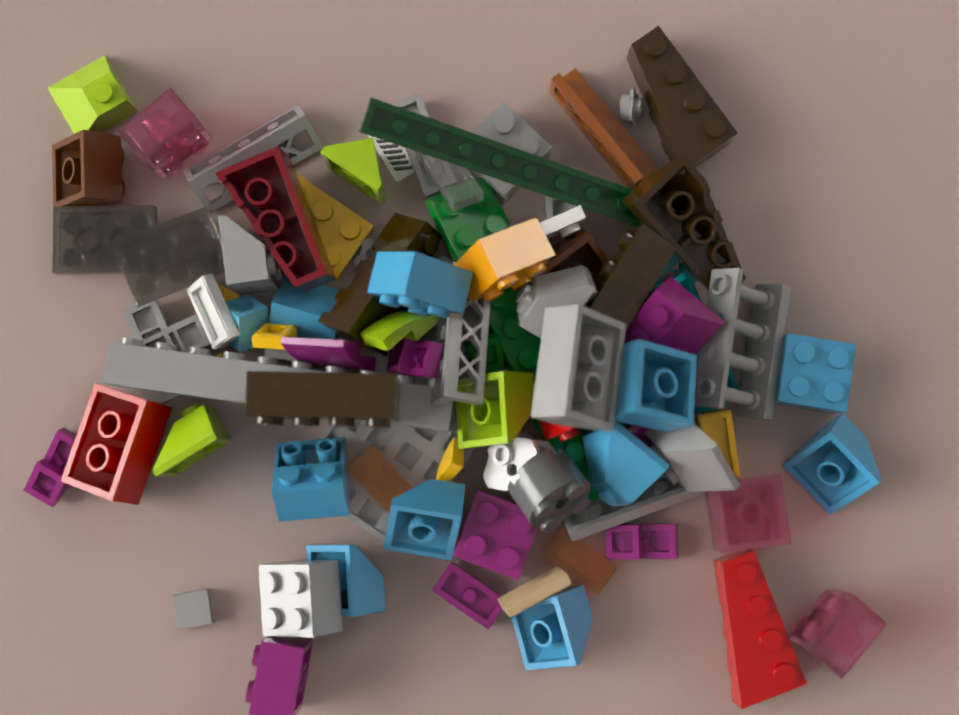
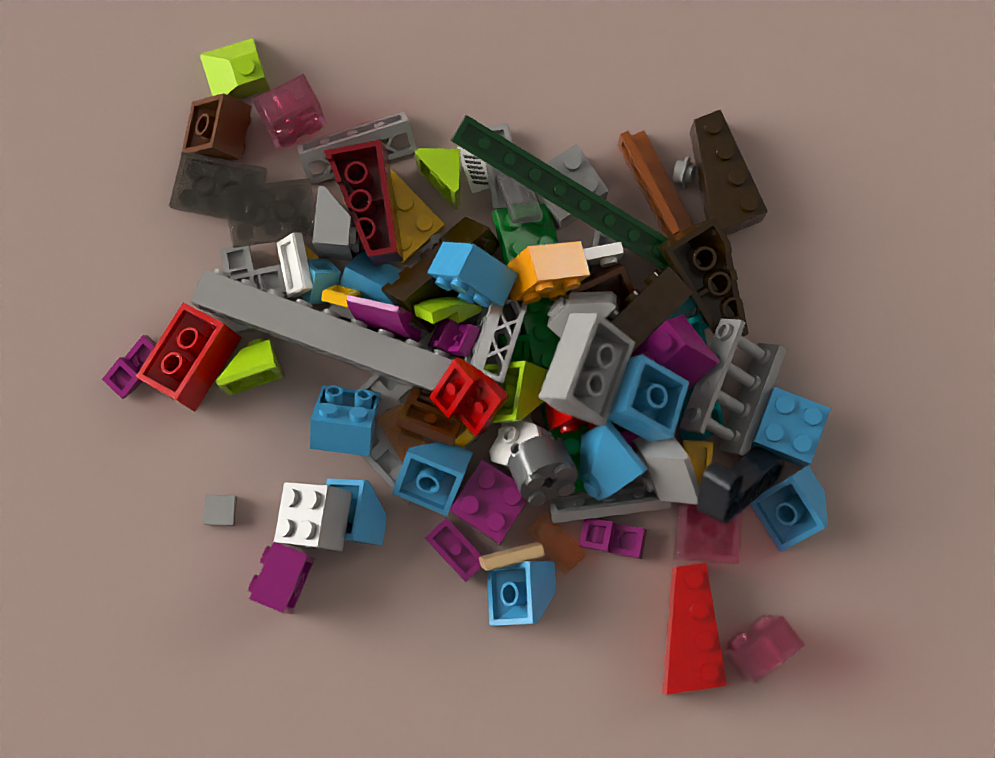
camera: 15 degrees right, 5 degrees down
(322, 396) = (372, 350): dark brown brick -> none
(410, 460) = (425, 418): none -> reddish brown plate
(447, 423) = (469, 395): none -> red slope
(768, 464) = (729, 491): none -> black beam

